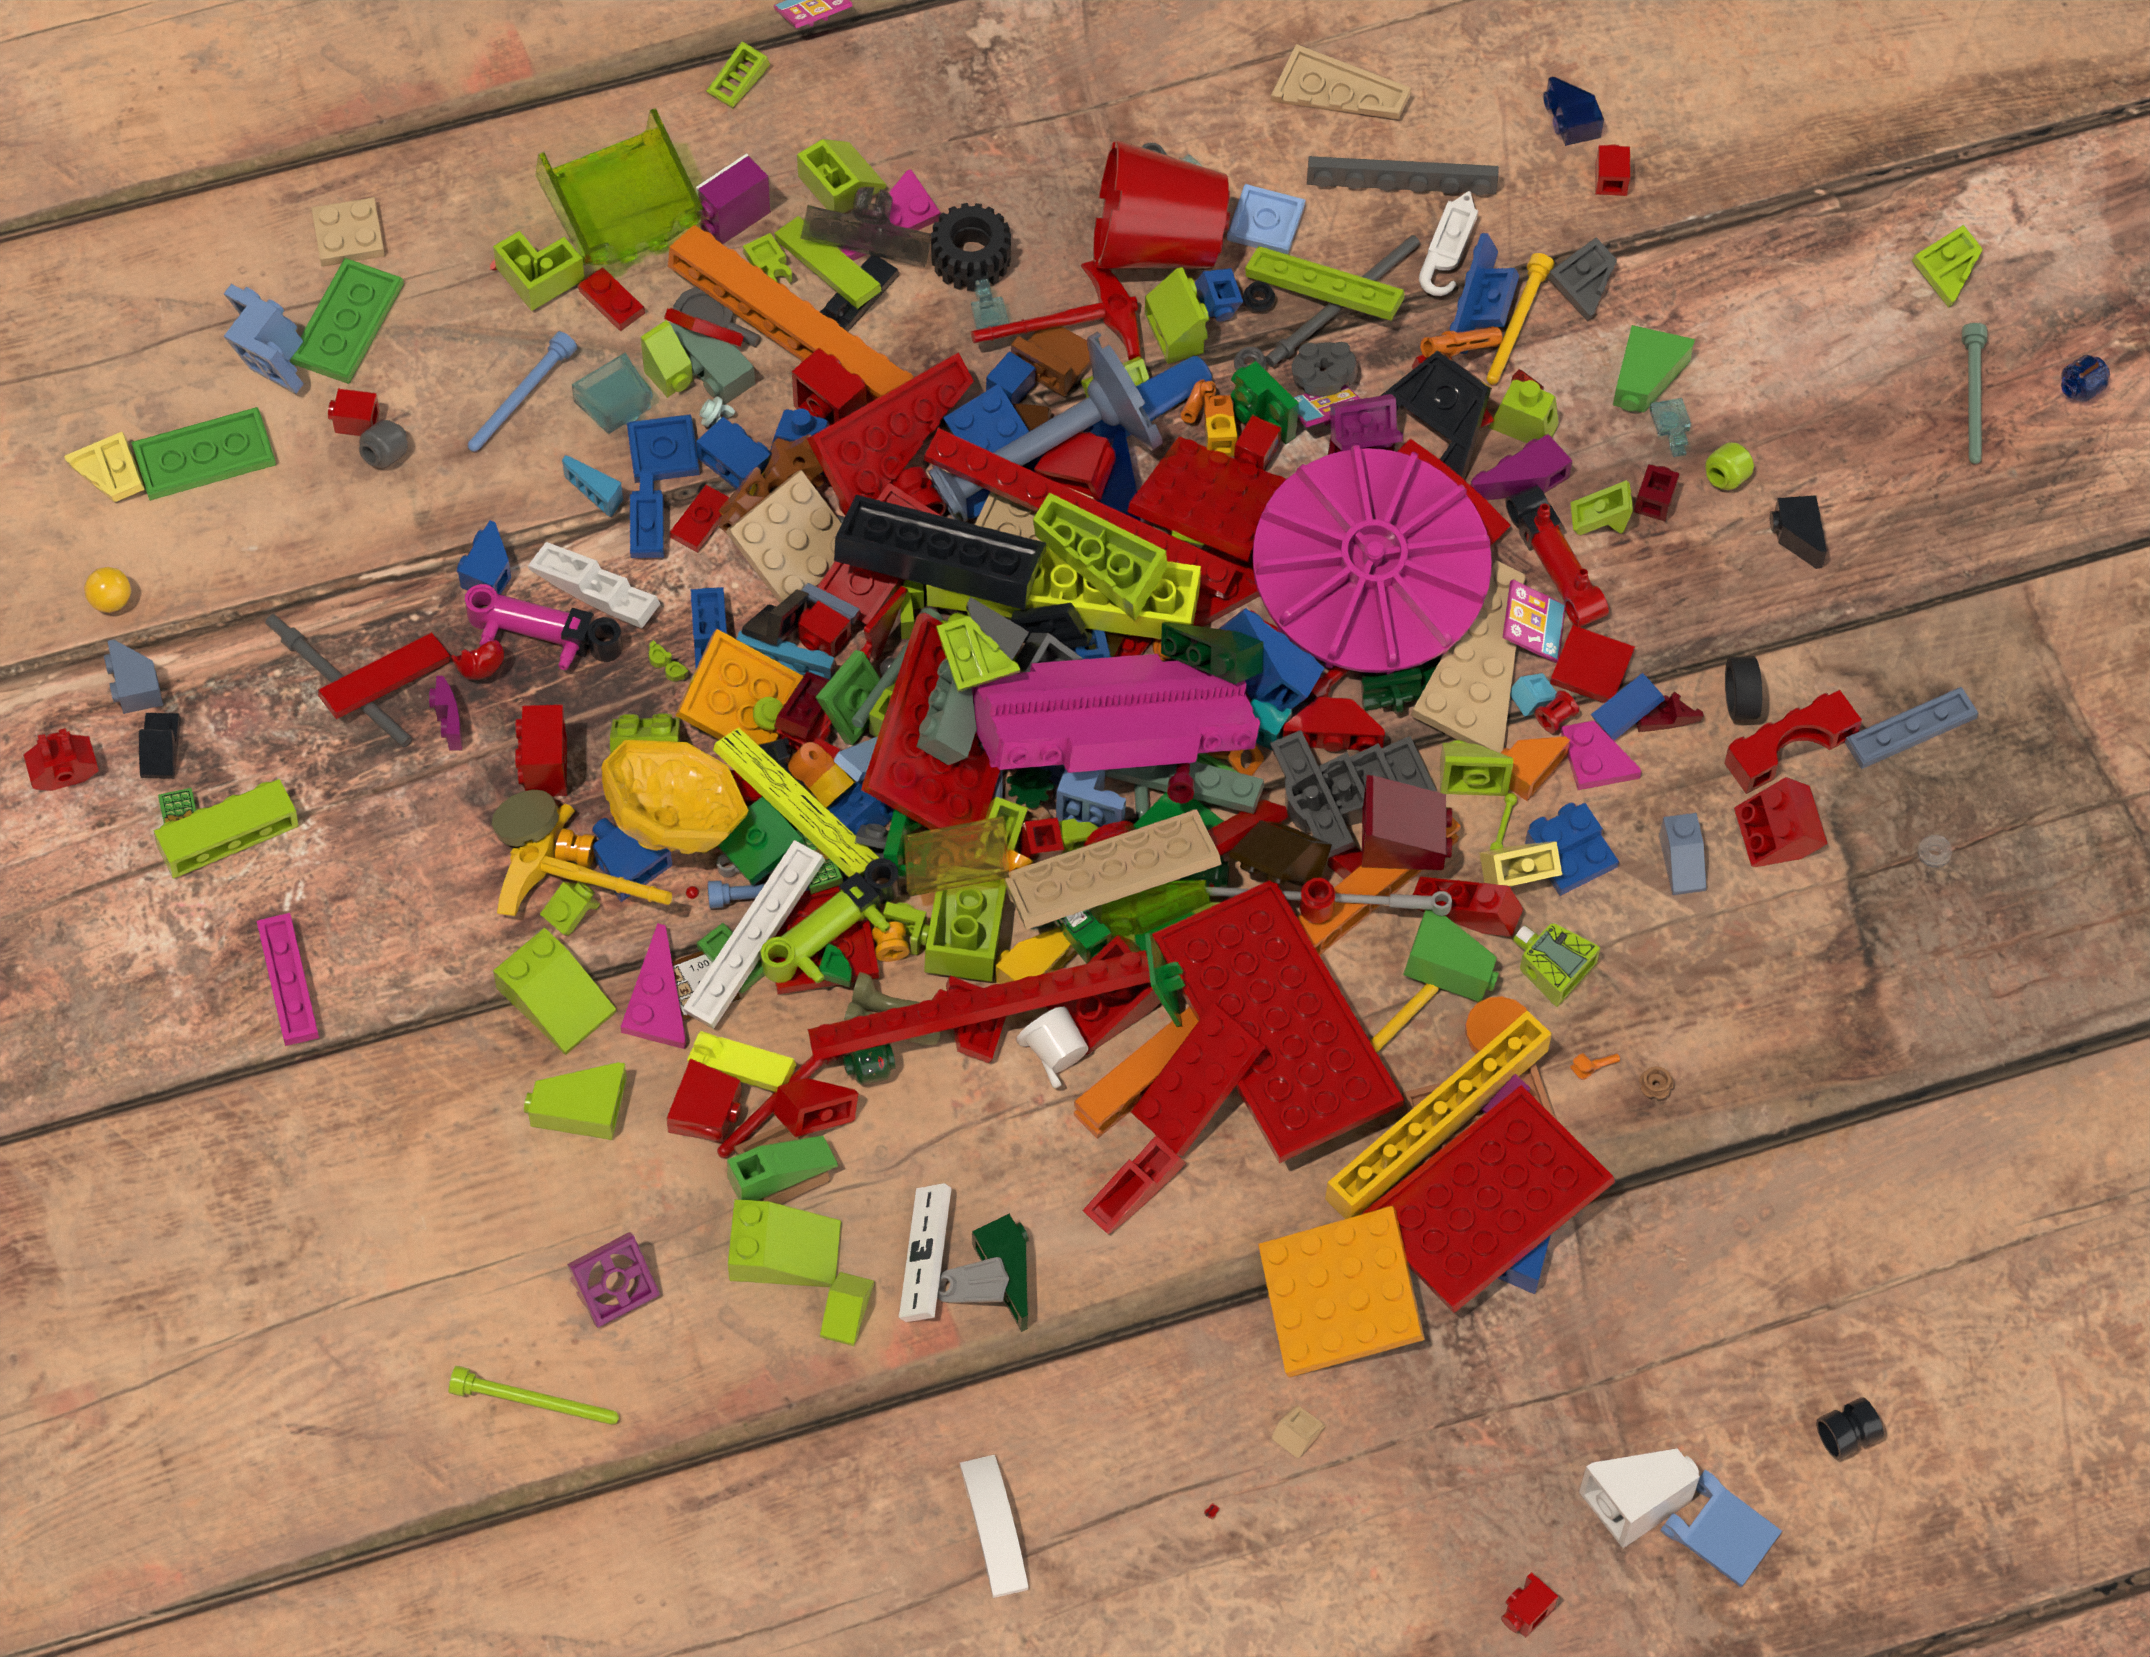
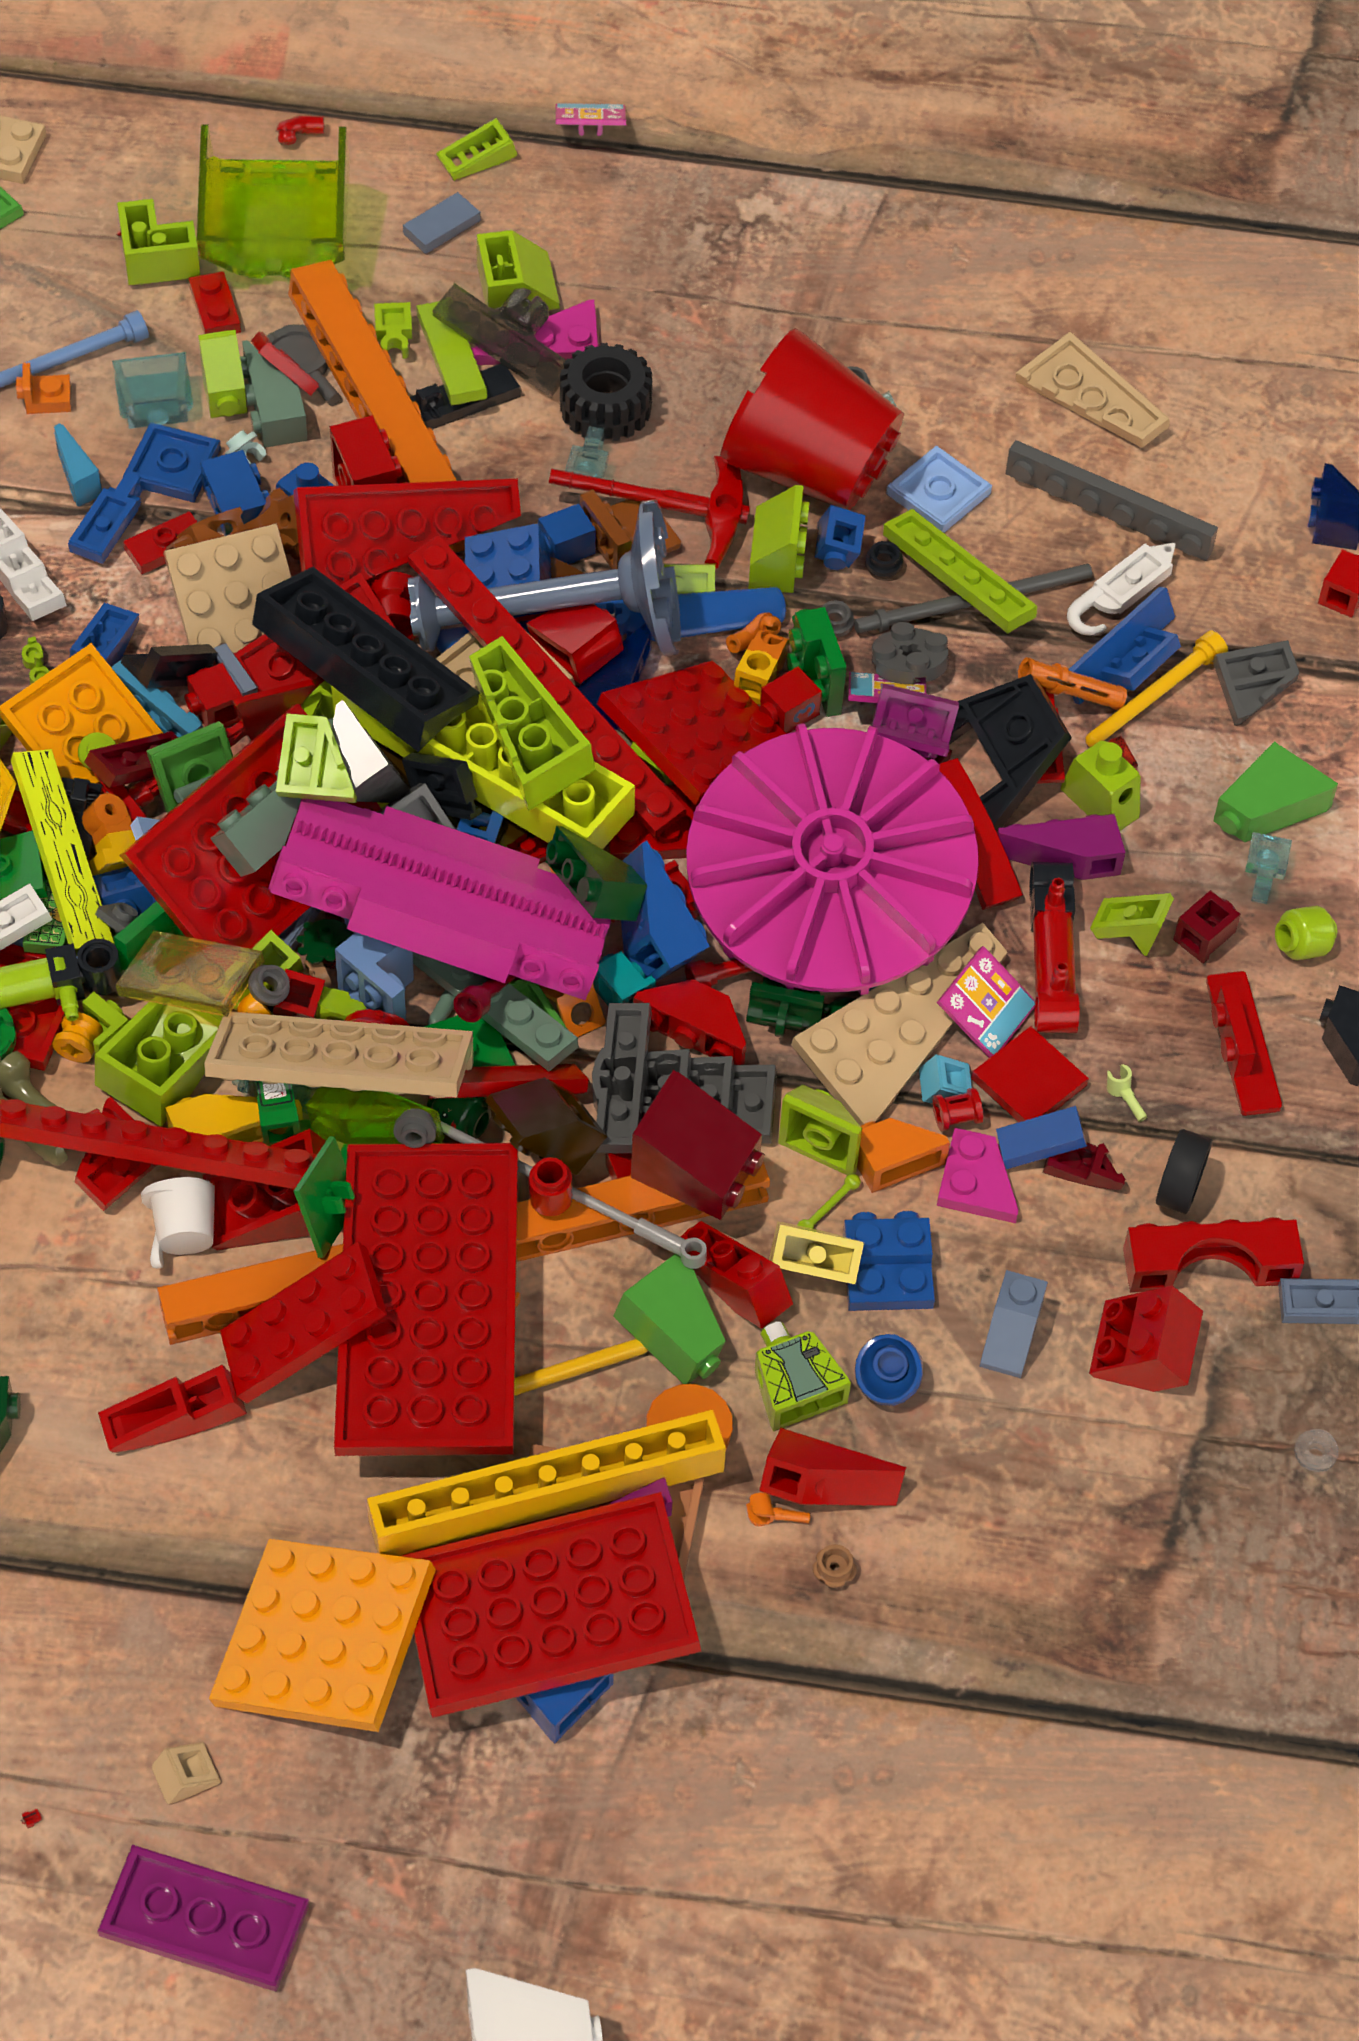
camera: 25 degrees right, 5 degrees down
(525, 432) = (44, 392): none -> orange bracket
(580, 111) = (299, 125): none -> red arm
(734, 199) = (387, 254): magenta piece -> none
(751, 139) = (441, 222): none -> sand blue tile
(1023, 839) = (276, 978): none -> flat silver plate
(1196, 900) = (415, 1128): none -> dark grey plate
(1372, 1521) = (204, 1918): none -> magenta tile
(1617, 1020) = (828, 1474): none -> red slope
(1618, 926) = (888, 1369): none -> blue piece
(1662, 644) = (1122, 1088): none -> yellowish green hand
(1728, 570) = (1243, 1043): none -> red bracket

